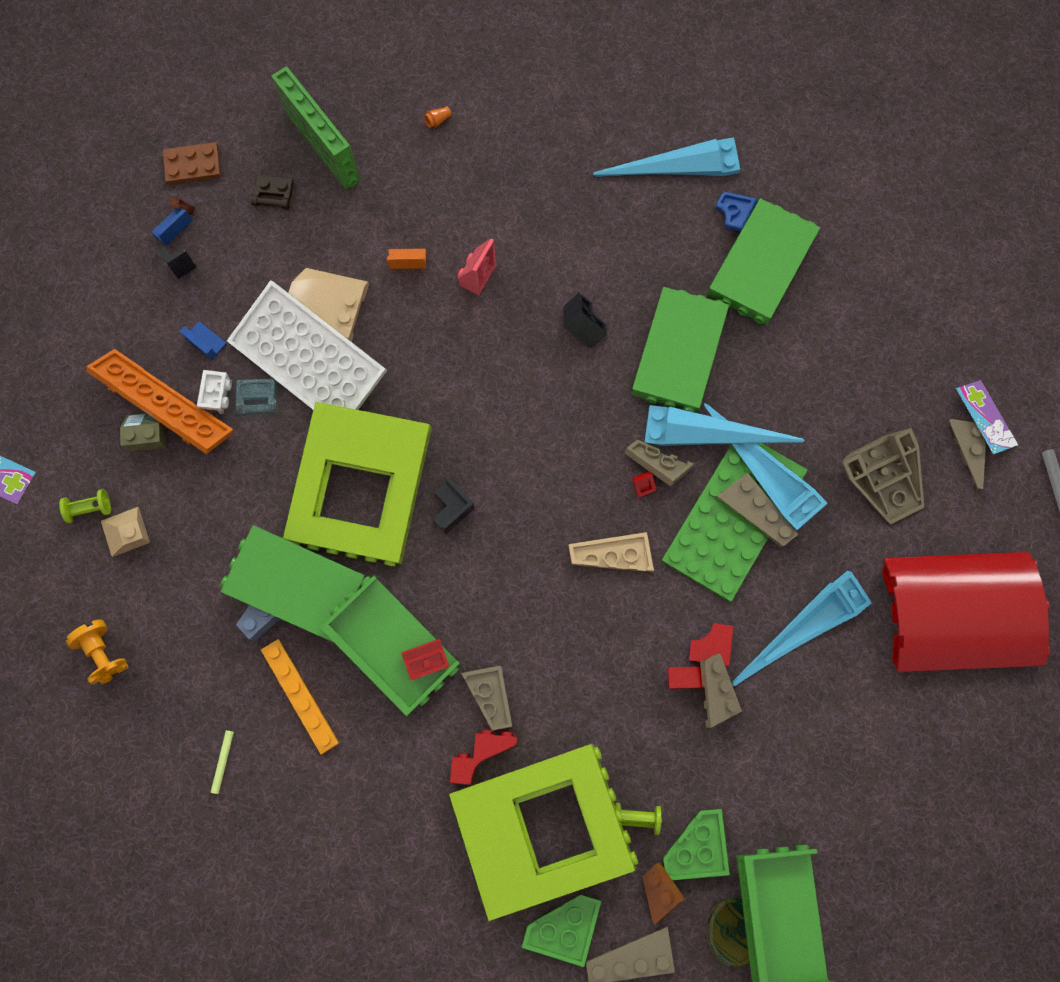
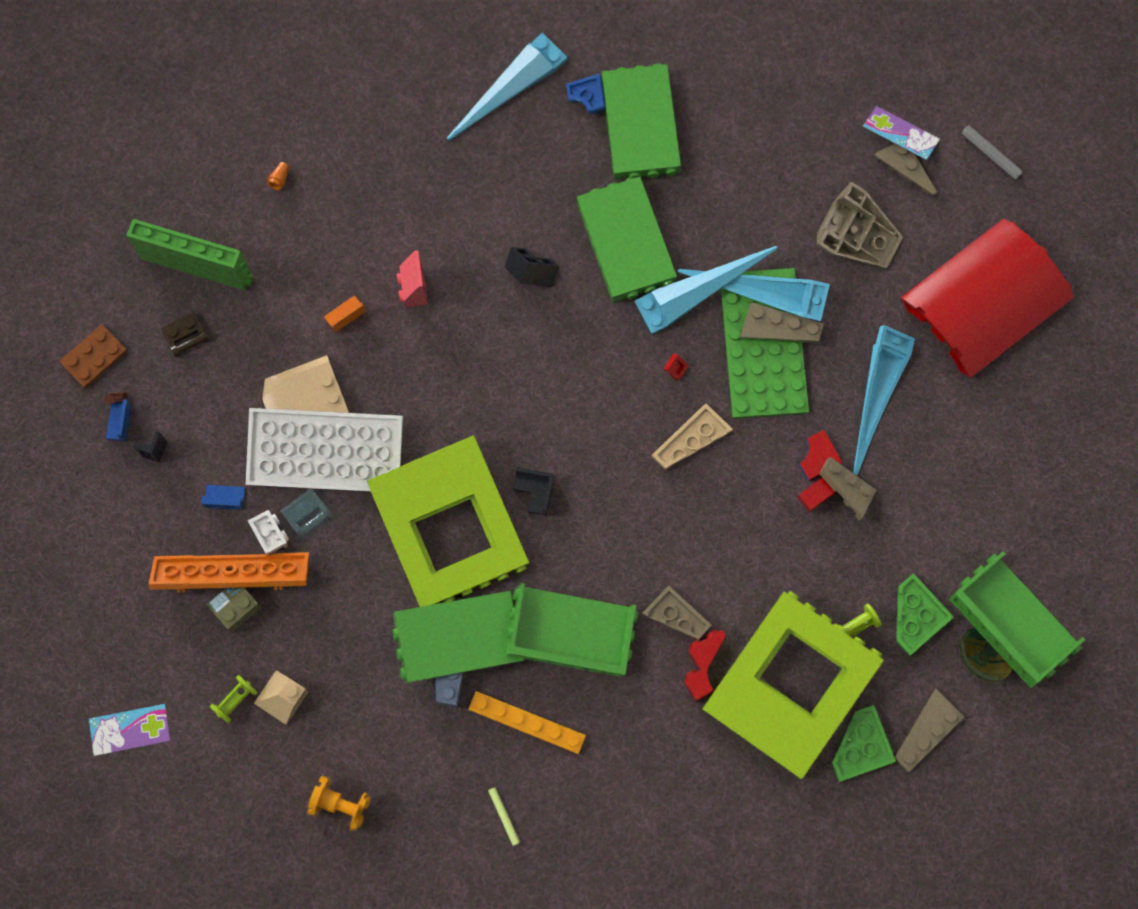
camera: 35 degrees left, 0 degrees up
(425, 659) = (606, 622): red plate -> none
(661, 893) = (913, 667): dark orange wing -> none
(663, 466) = (678, 342): dark tan wing -> none

